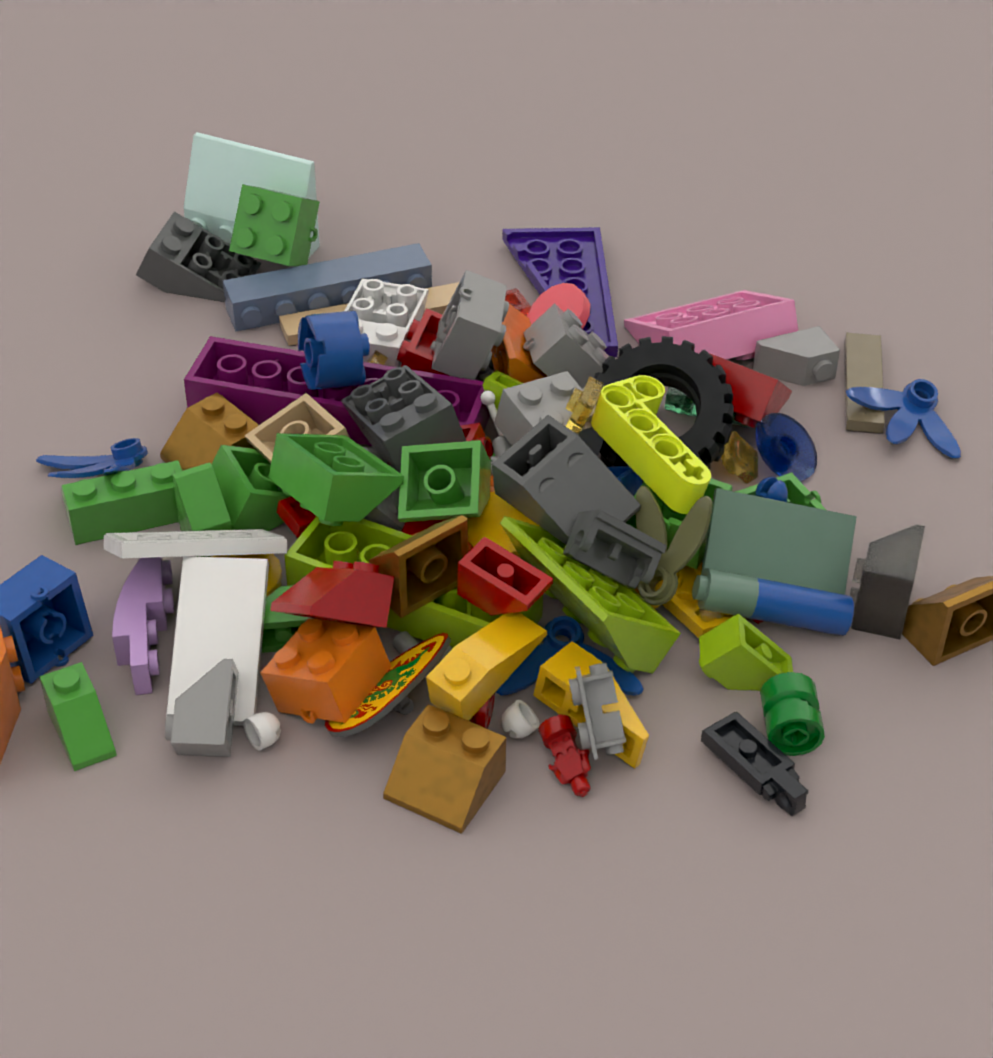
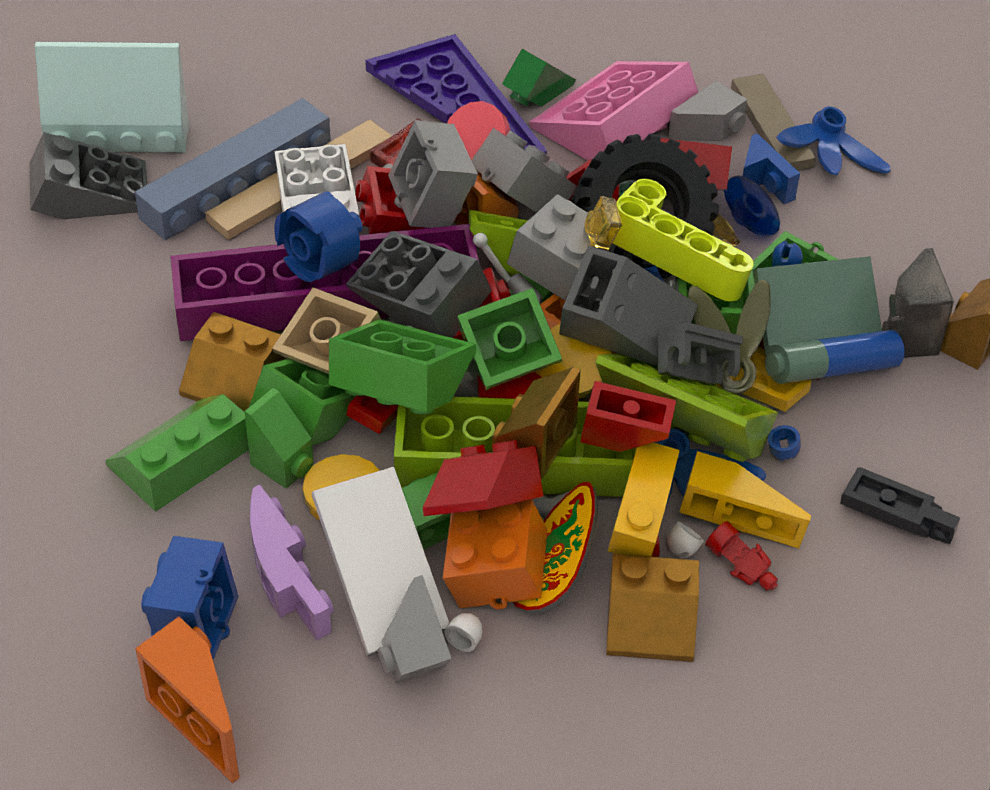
camera: 25 degrees left, 5 degrees up
(77, 716) = (286, 681): bright green slope -> none
(125, 457) = (150, 407): blue plant -> none
(194, 543) = (303, 474): white tile -> none
(274, 226) = (160, 120): bright green brick -> none
(600, 728) = (766, 524): light grey hinge -> none
(650, 284) = (535, 80): none -> green slope
(669, 666) = (793, 440): none -> blue hinge
(741, 655) = (834, 416): lime slope -> none
(792, 713) = (904, 452): green wheel -> none
(823, 417) = (769, 168): none -> blue slope

